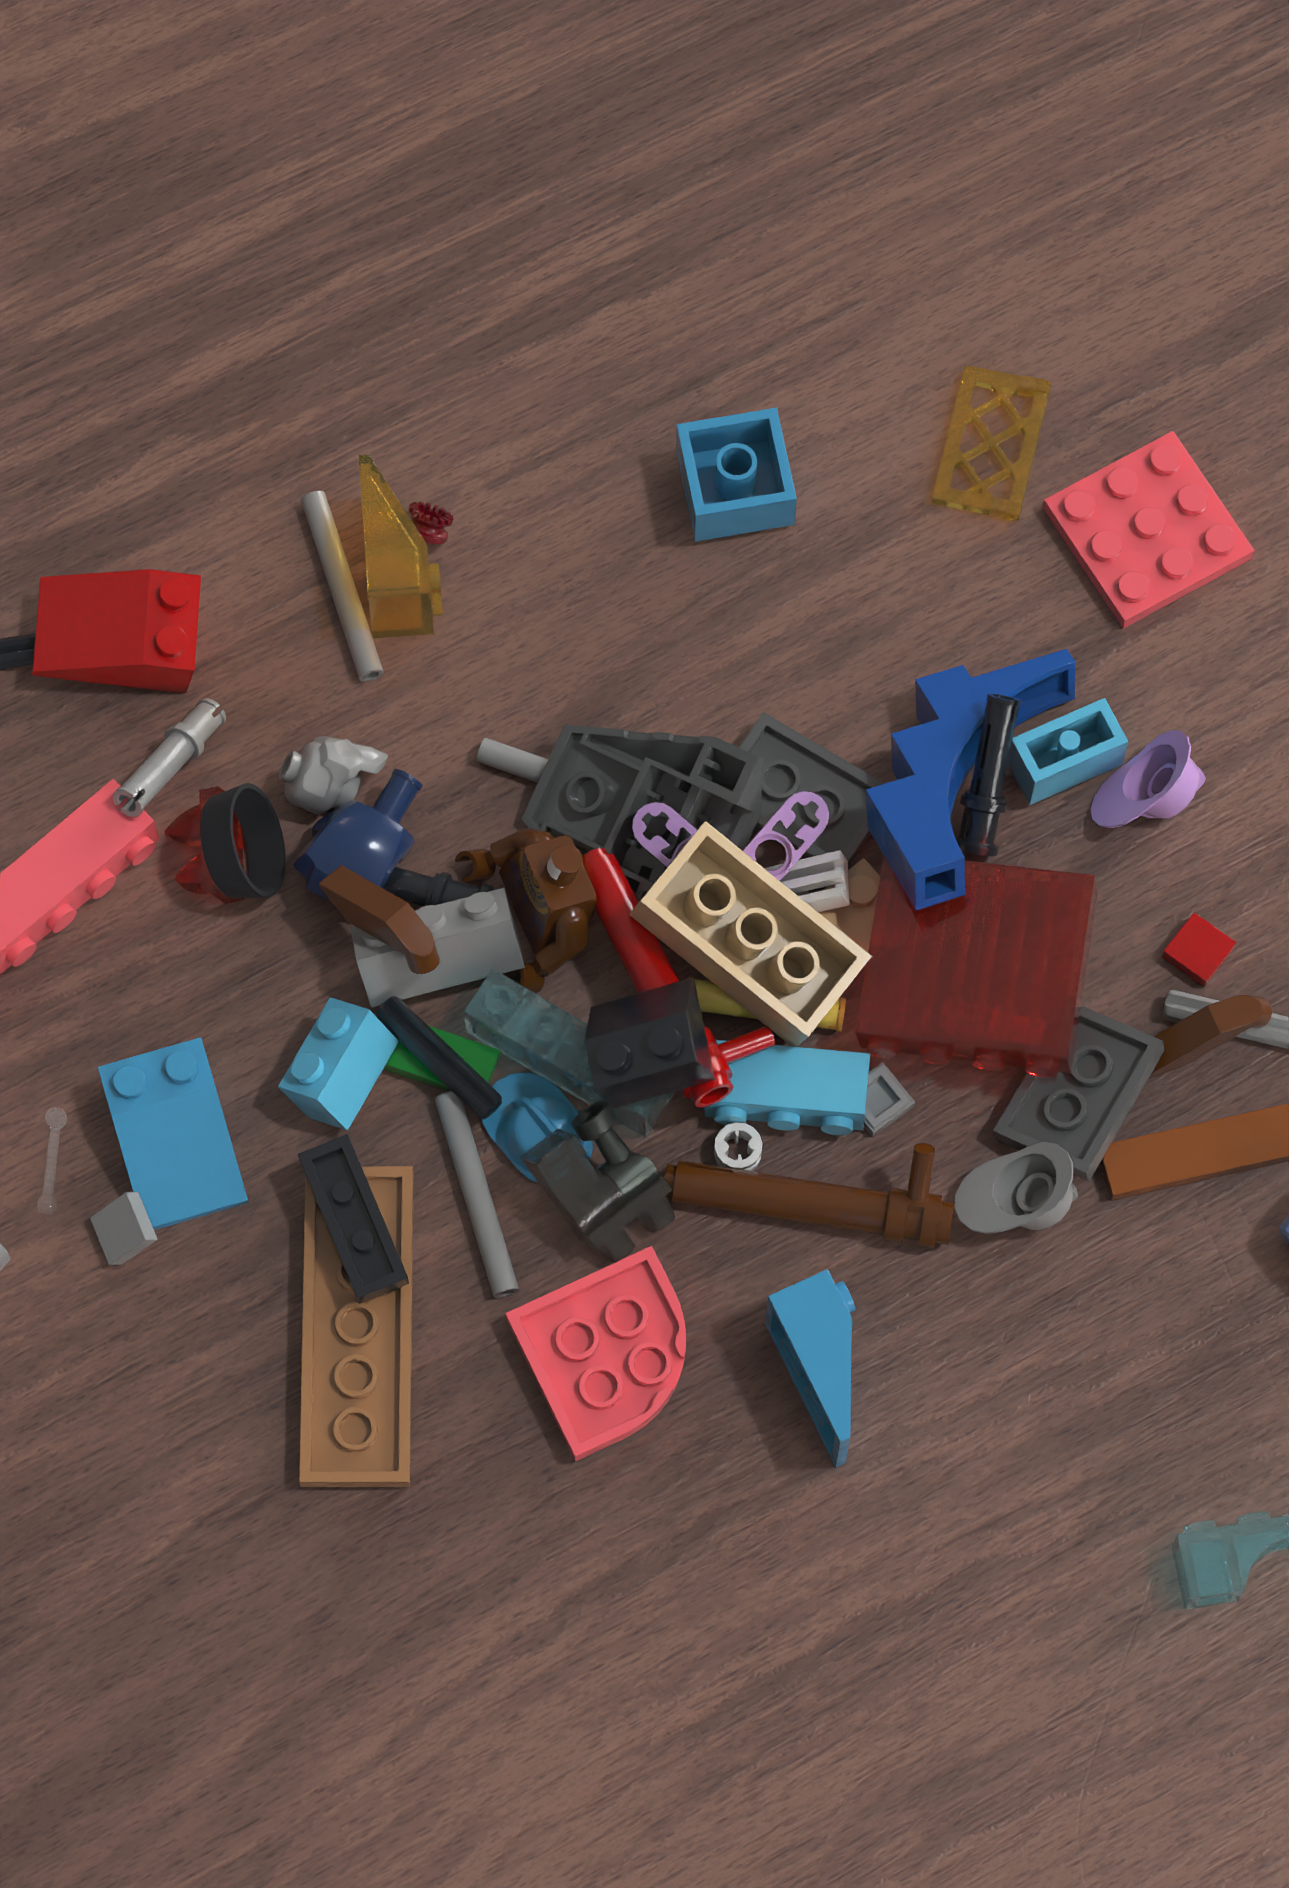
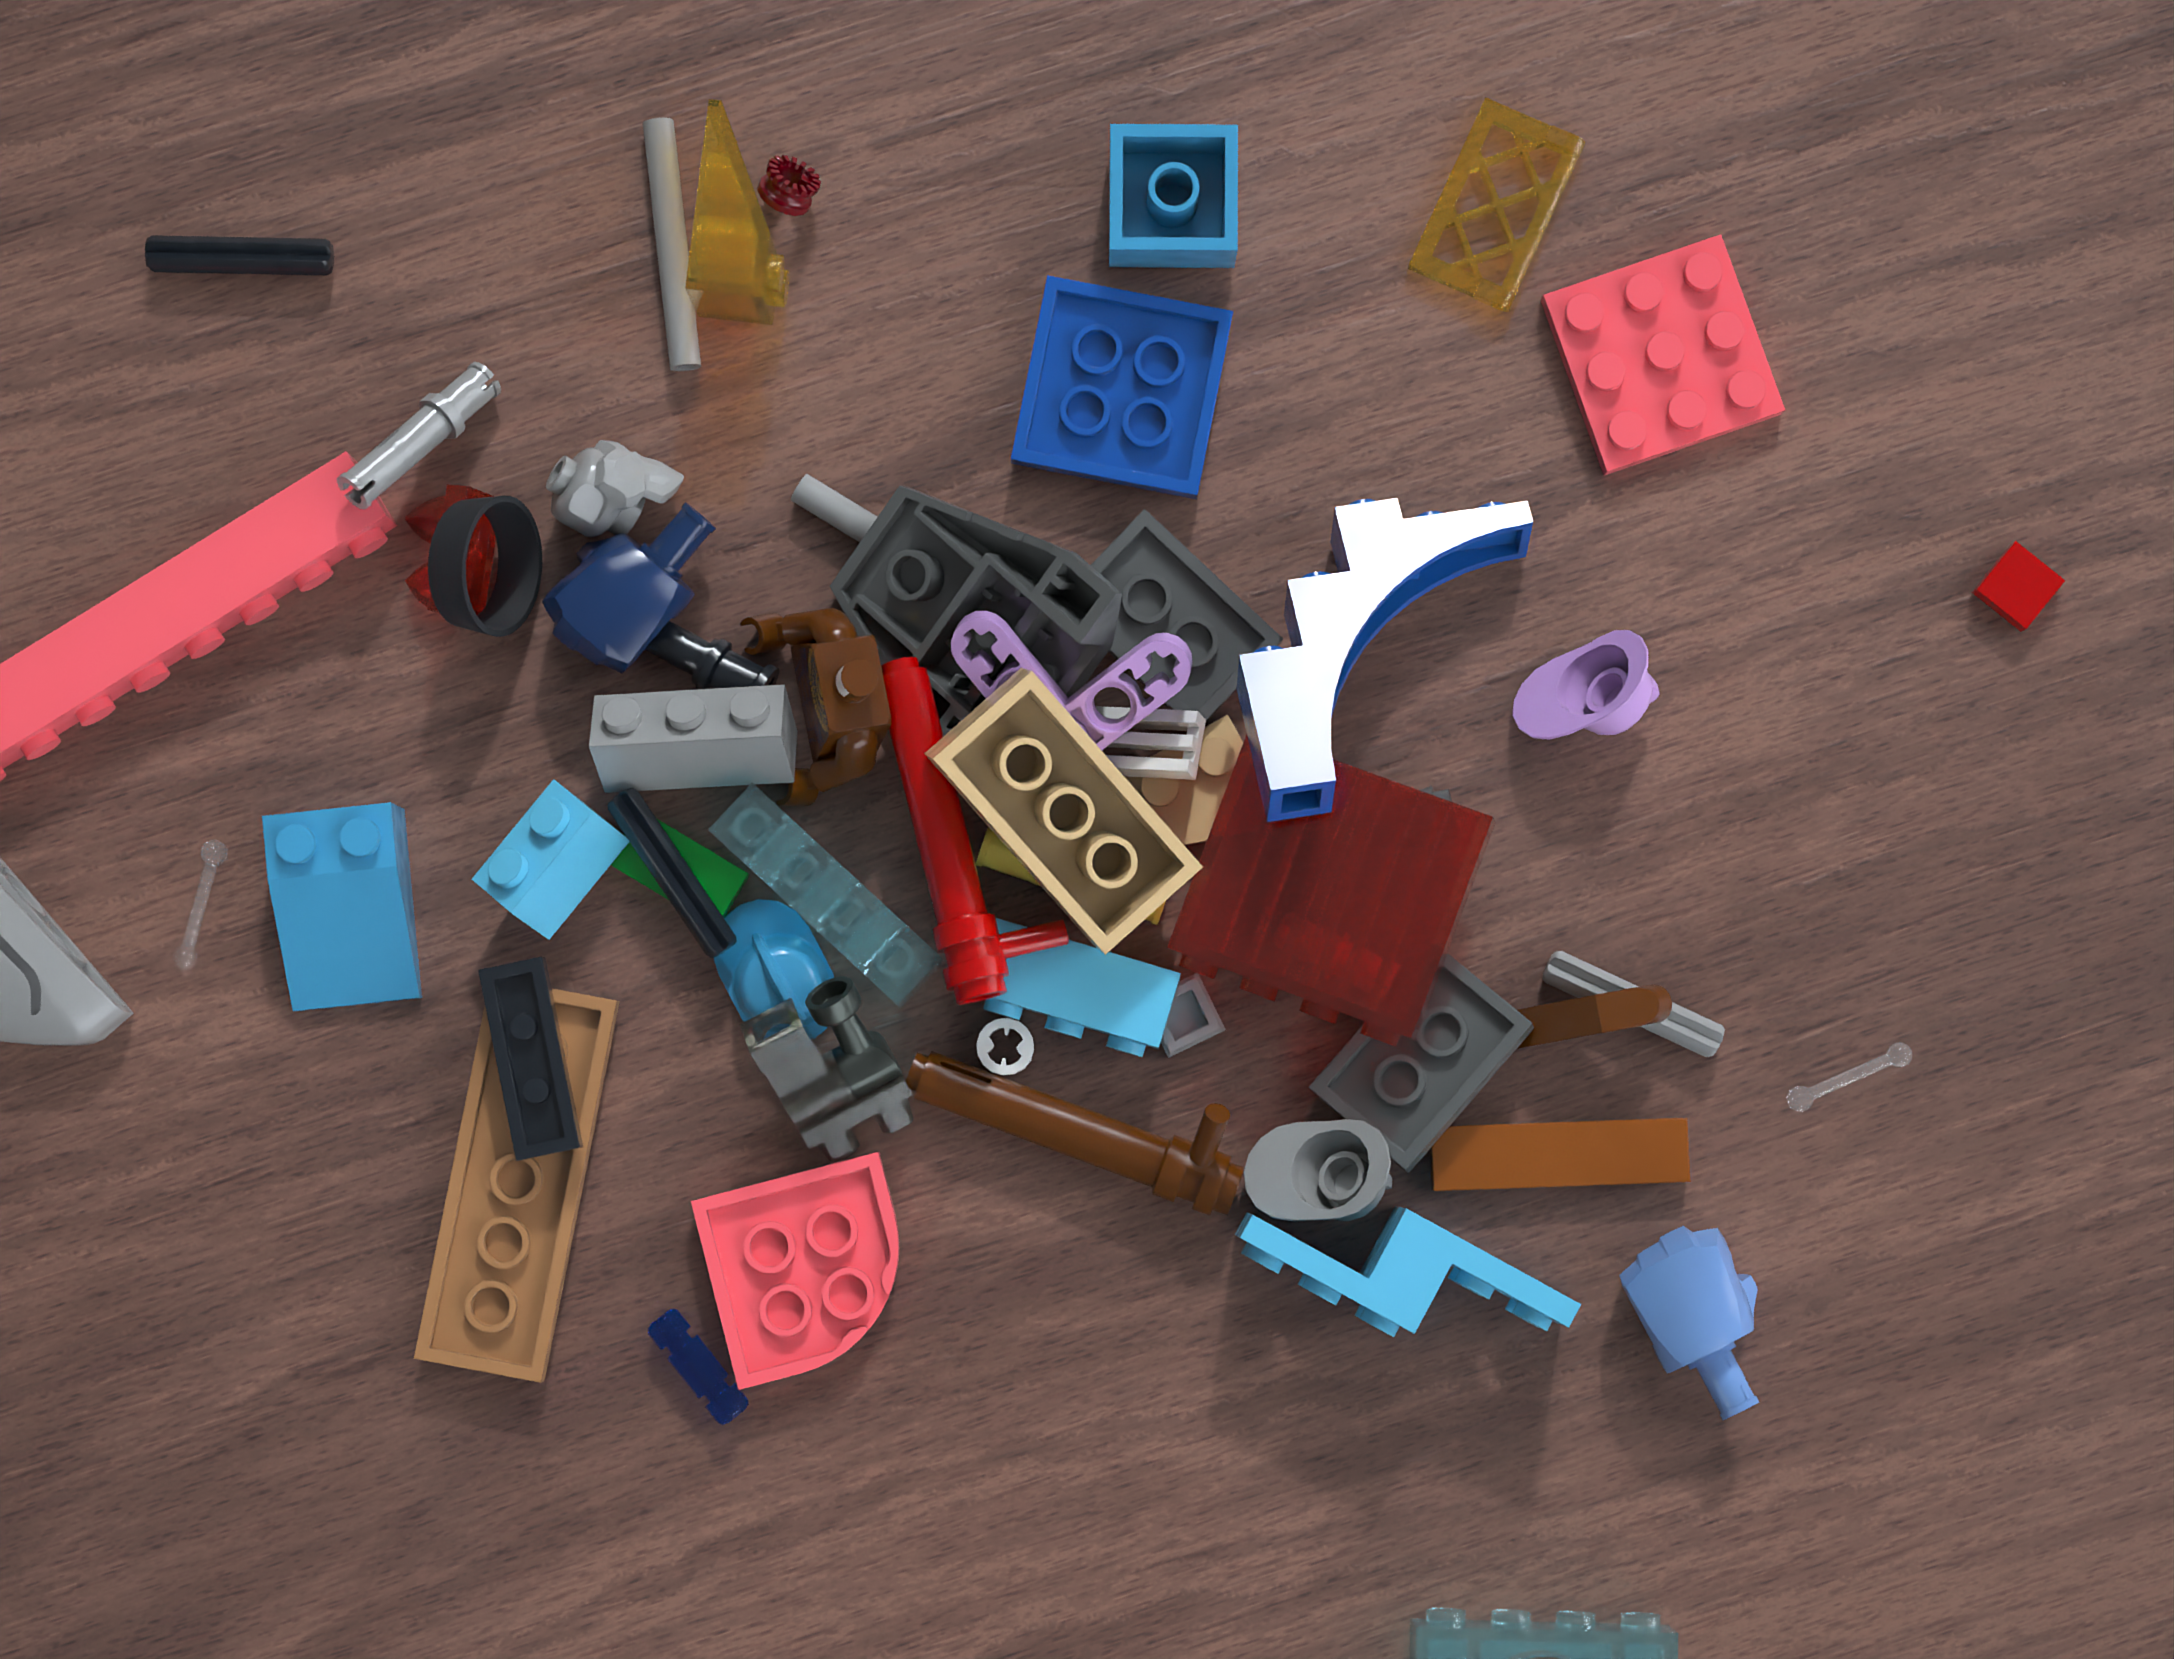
camera: 10 degrees right, 15 degrees up
(118, 628) = (386, 255): red slope -> none
(123, 1228) = (266, 1009): light grey tile -> none
(382, 917) = (627, 702): reddish brown piece -> none
(477, 1195) = (687, 1045): light grey piece -> none
(536, 1449) = (698, 1366): none -> clear blue axle
(648, 1044) = (911, 924): black slope -> none
(725, 627) = (1121, 387): none -> blue plate
(814, 1338) = (1044, 1322): dark azure slope -> none
(985, 799) = (1386, 674): black pin -> none
(1067, 751) = (1499, 631): medium azure brick -> none
(1097, 1266) = (1406, 1273): none -> medium azure bracket
(1199, 949) = (1604, 903): red tile -> none

